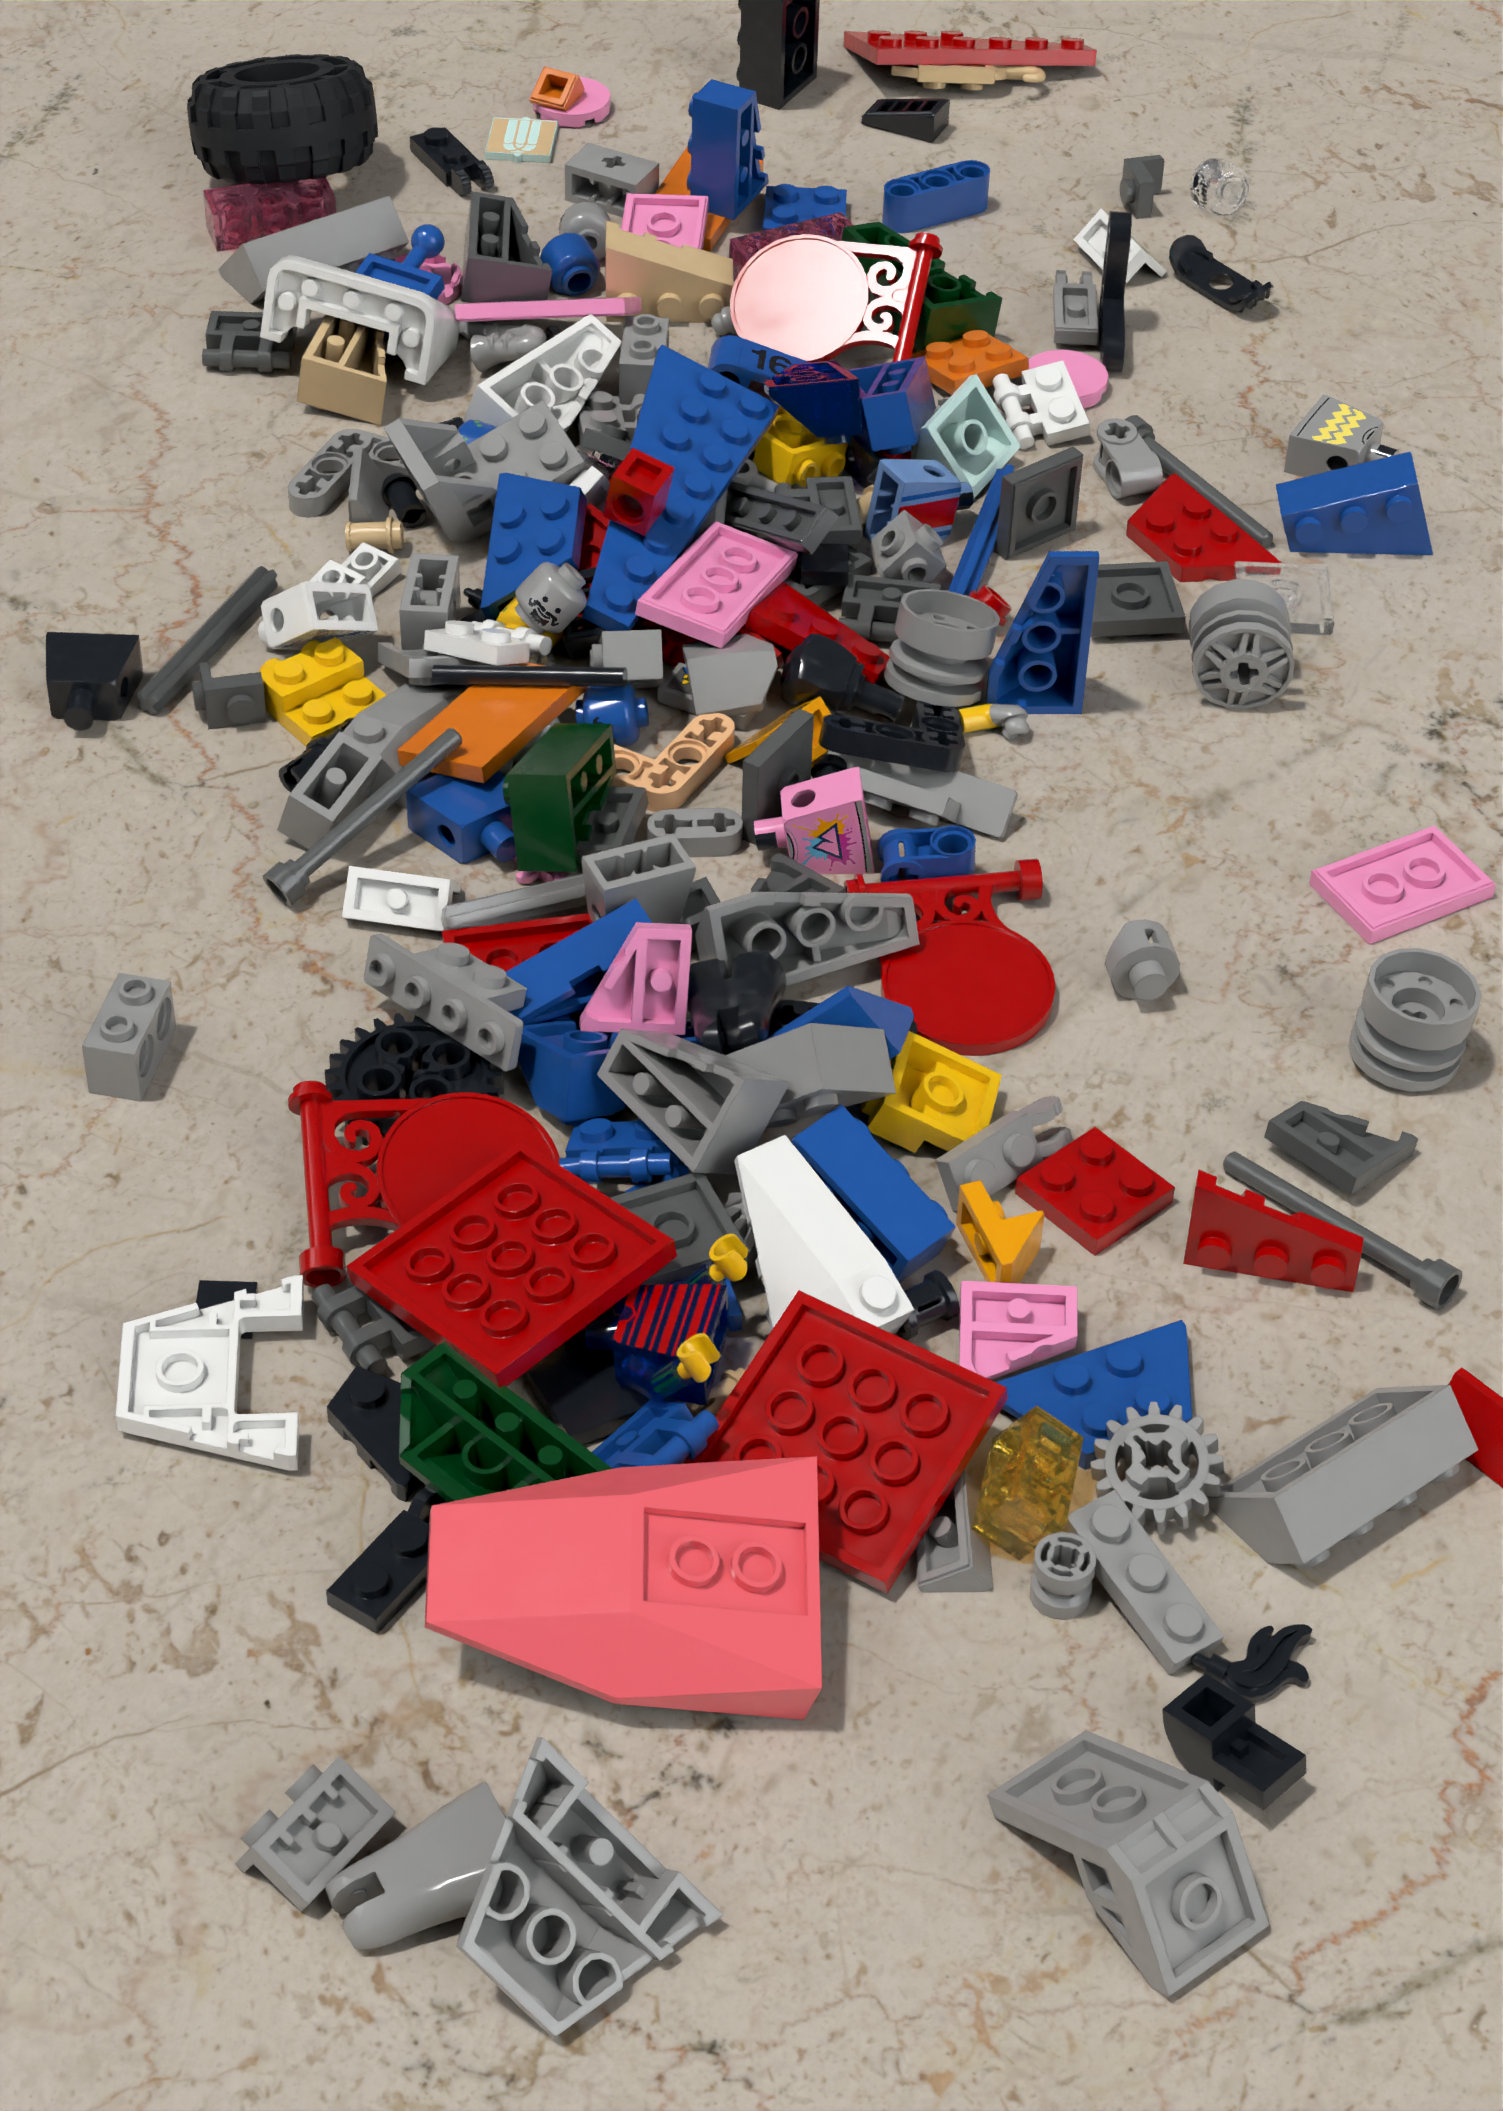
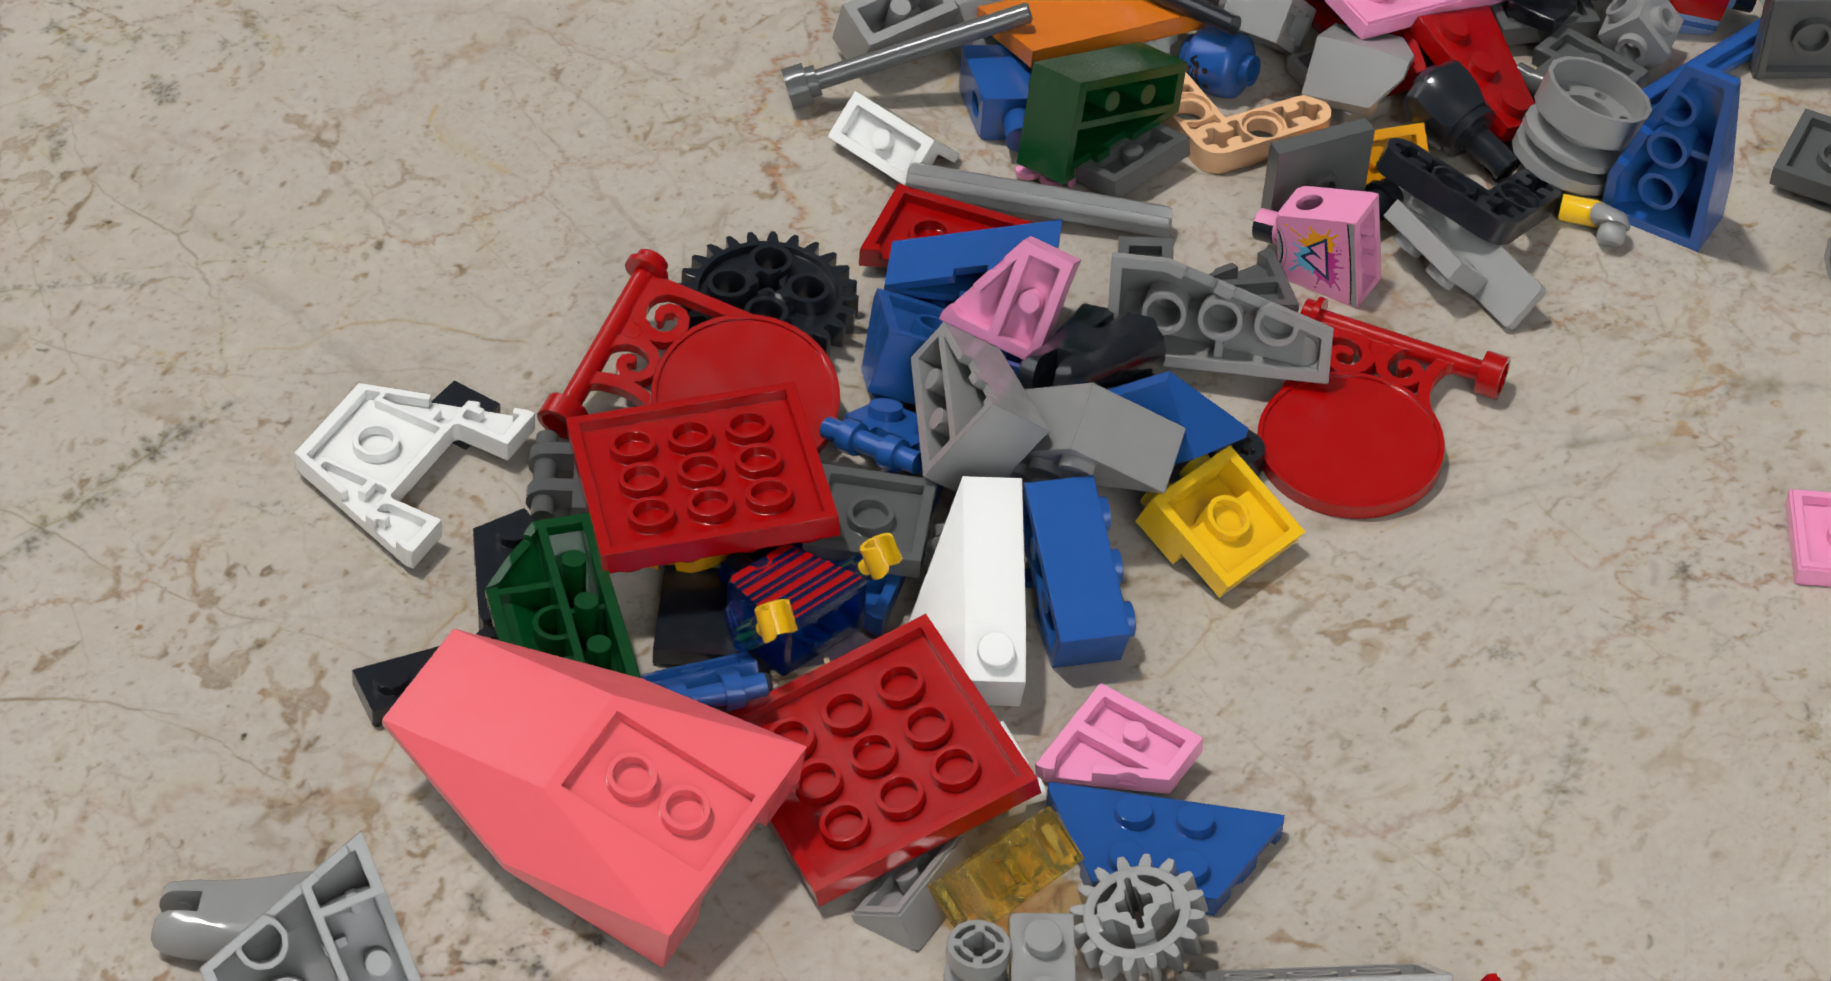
camera: 30 degrees right, 0 degrees up
(129, 1037) = (555, 155): light grey brick -> none
(317, 1834) = (192, 842): light grey bracket -> none
(452, 994) = (847, 234): light grey bracket -> none
(650, 870) = (1094, 208): light grey torso -> none
(699, 830) = (1211, 199): light grey beam -> none
(927, 853) = (1409, 309): blue piece -> none
(931, 1300) = (1069, 700): black bush -> none
(997, 1244) = (1177, 675): light orange slope -> none
(1003, 1149) = (1240, 597): light grey hinge -> none
(1094, 1190) = (1310, 672): red plate -> none
(1142, 967) = (1524, 499): light grey piece -> none
(1256, 1240) = (1401, 773): red wing -> none
(1337, 1145) = (1579, 741): dark grey wing -> none
(1414, 1019) = (1745, 659): light grey wheel -> none
(1433, 1280) = (1559, 895): dark grey piece -> none

